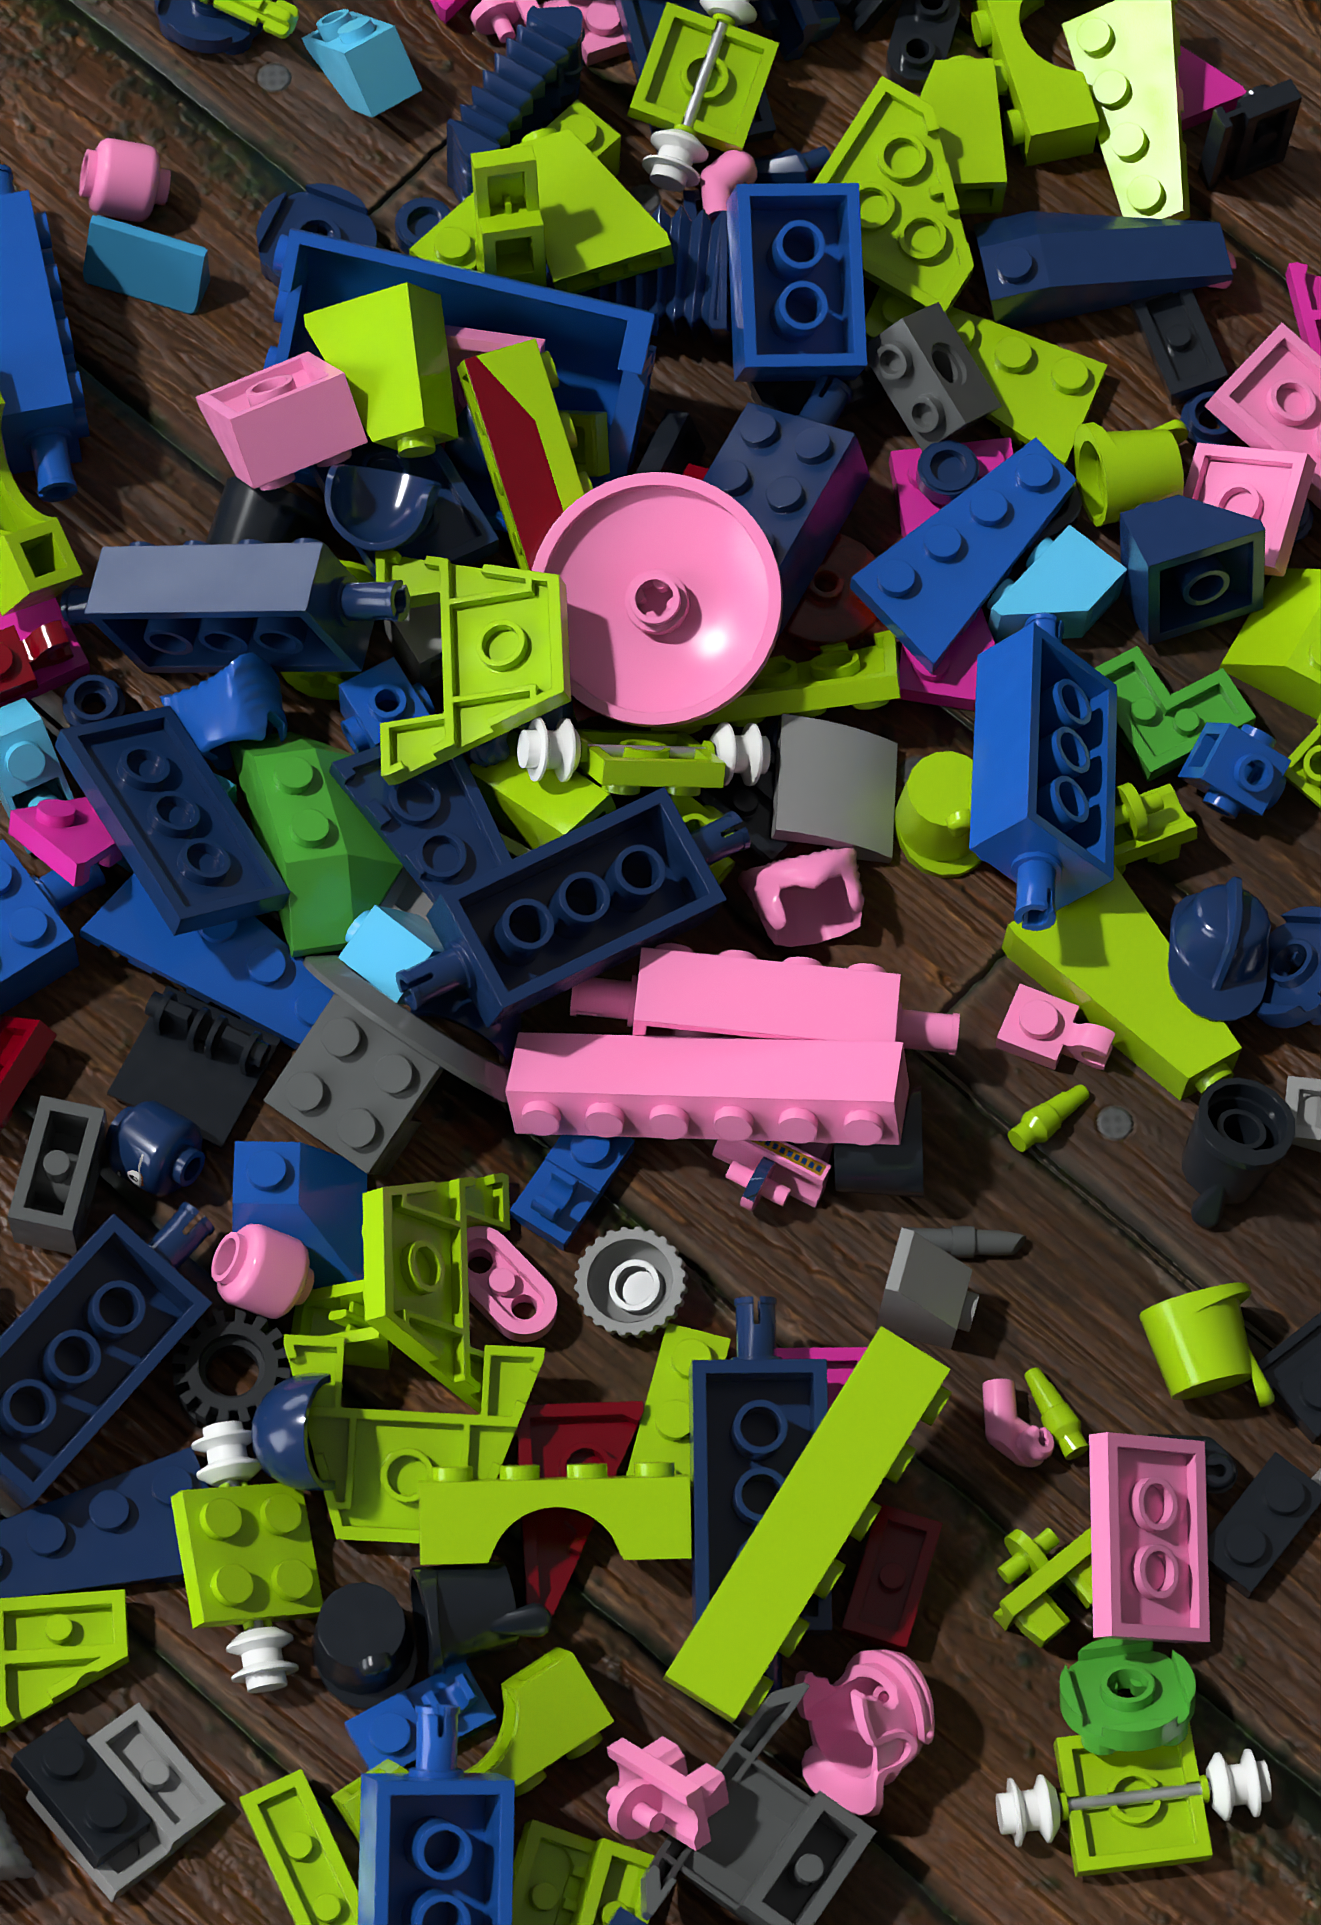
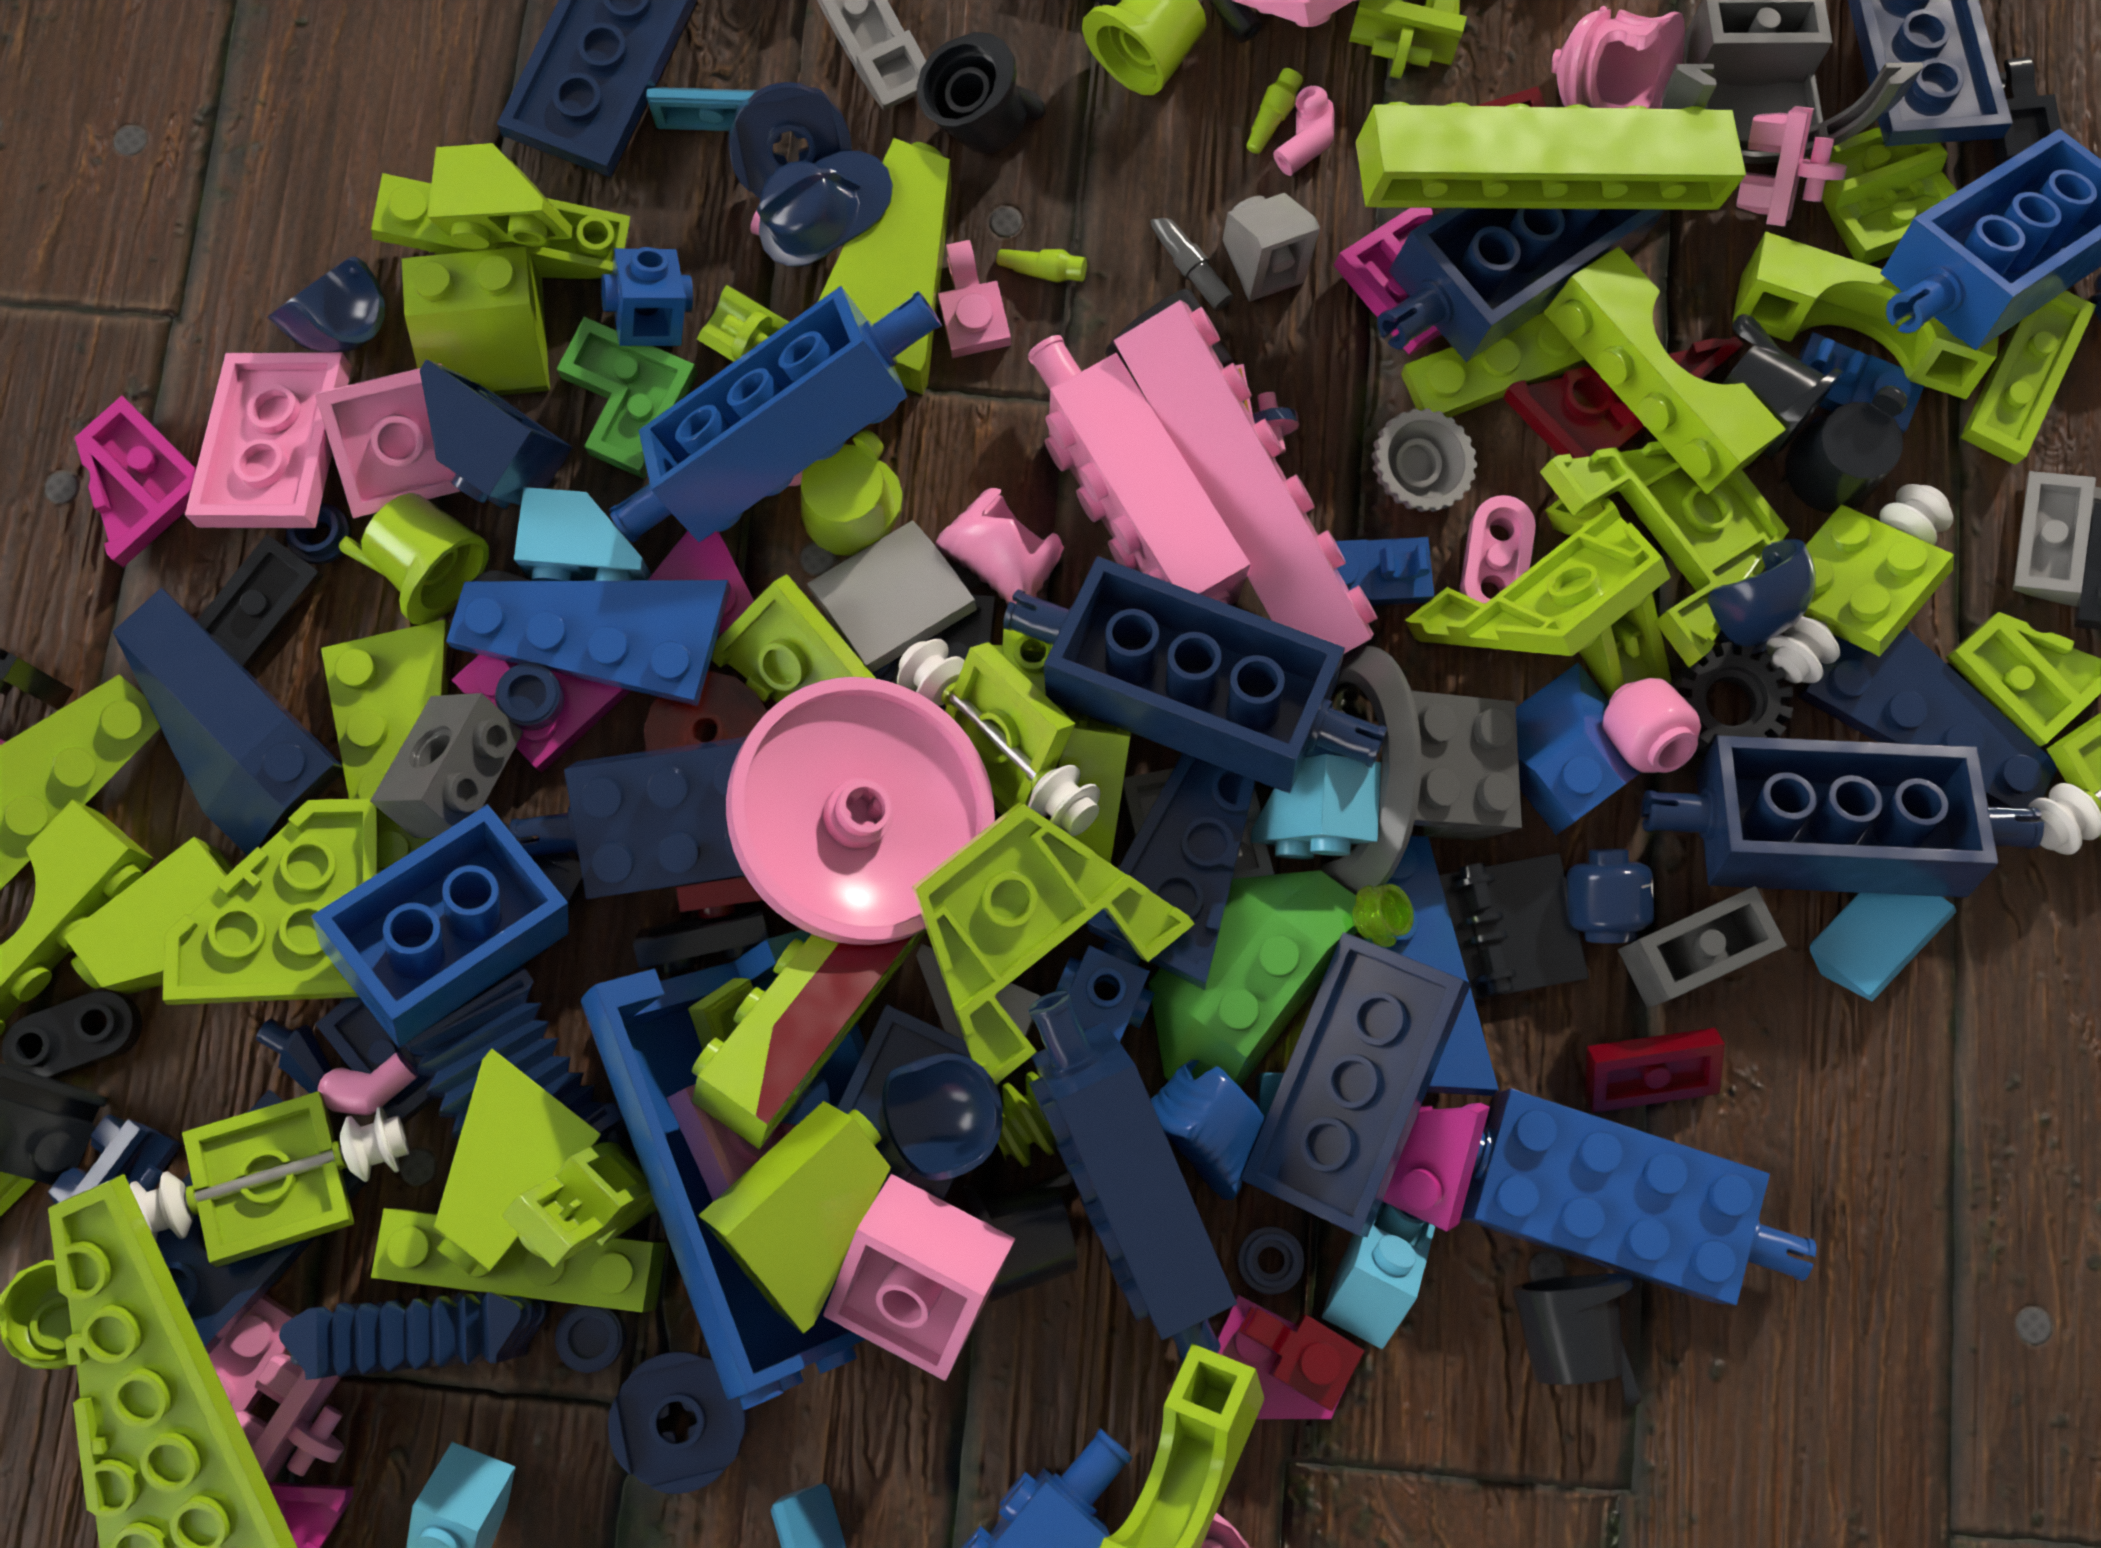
camera: 125 degrees left, 10 degrees up
(270, 949) = (1382, 913): none -> clear neon green plate

